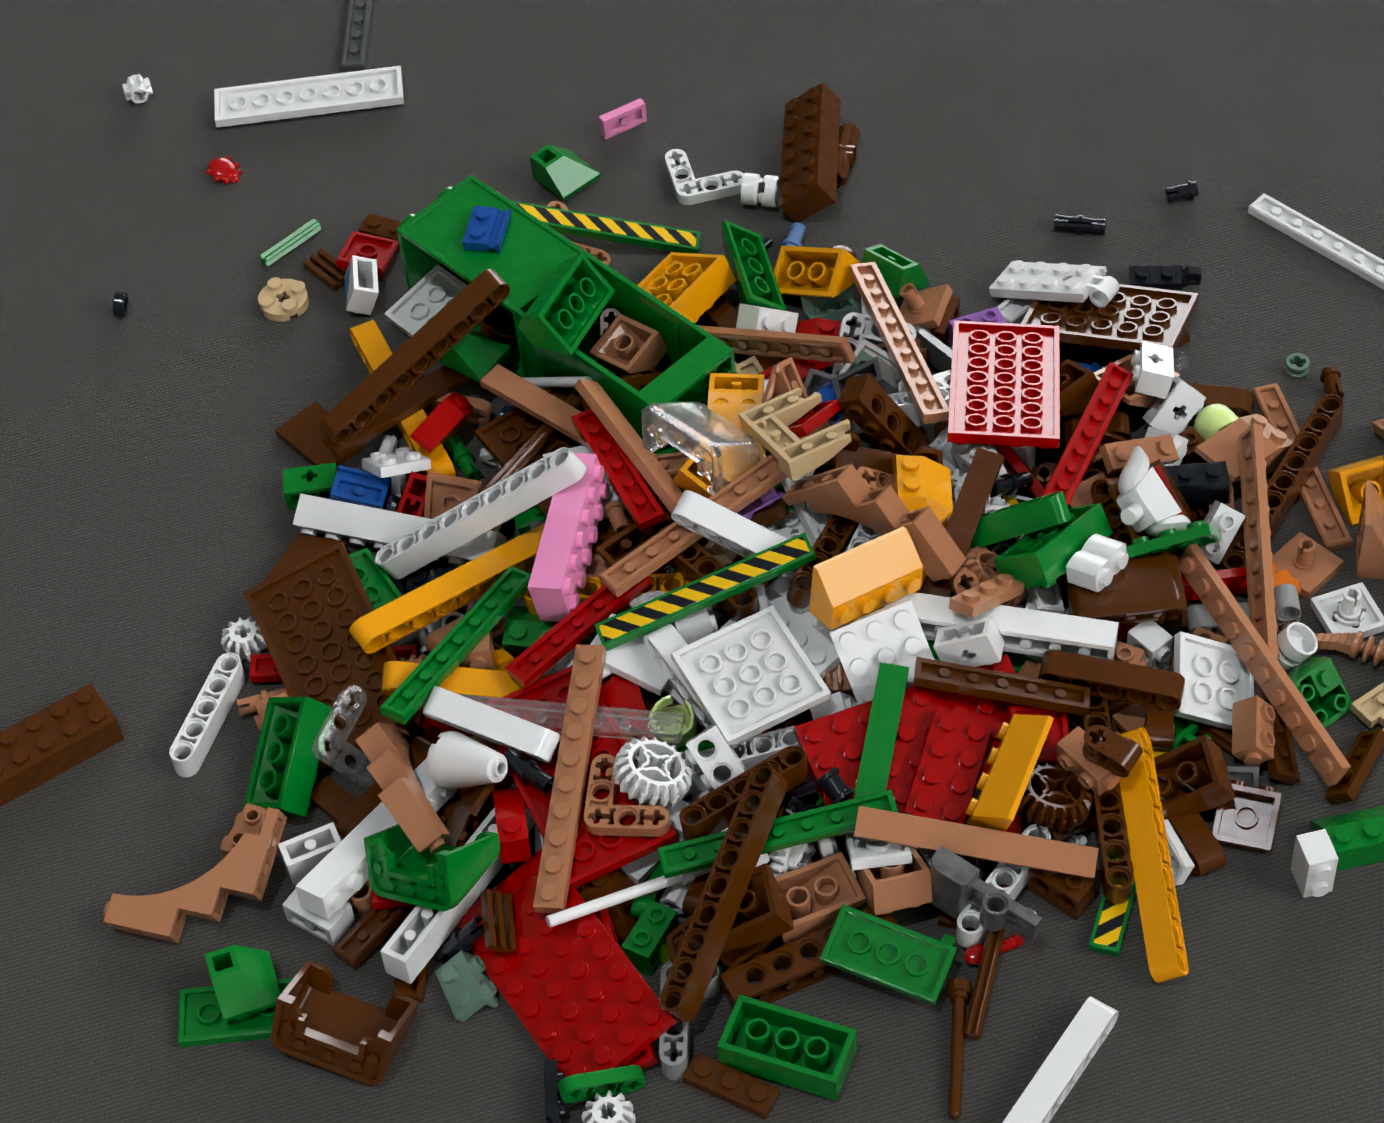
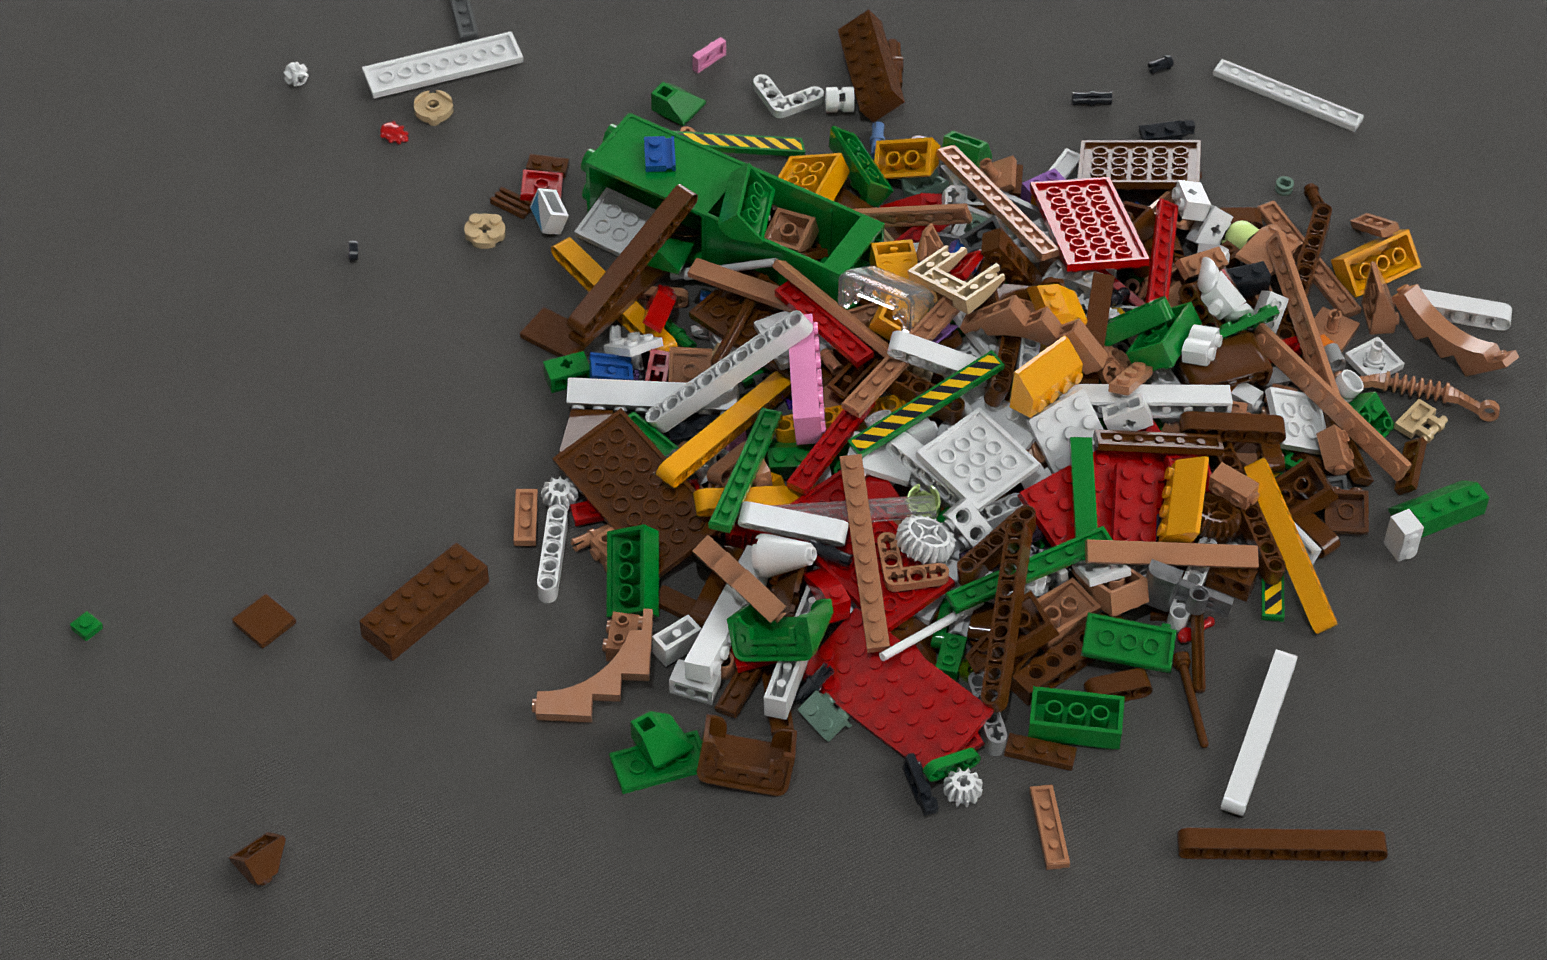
camera: 20 degrees left, 0 degrees up
(194, 663) = (525, 517): none -> nougat plate
(290, 147) = (433, 115): none -> tan plate
(290, 242) = (472, 185): axle -> none
(338, 738) = (671, 554): clear beam -> none
(502, 922) = (840, 664): reddish brown tile -> none
(766, 319) = (885, 198): white brick -> none
(835, 786) = (1062, 530): black bush -> none
(864, 1011) = (1129, 683): none -> reddish brown beam
(1055, 283) = (1091, 145): white hinge -> none
(1112, 751) = (1253, 475): reddish brown piece -> none

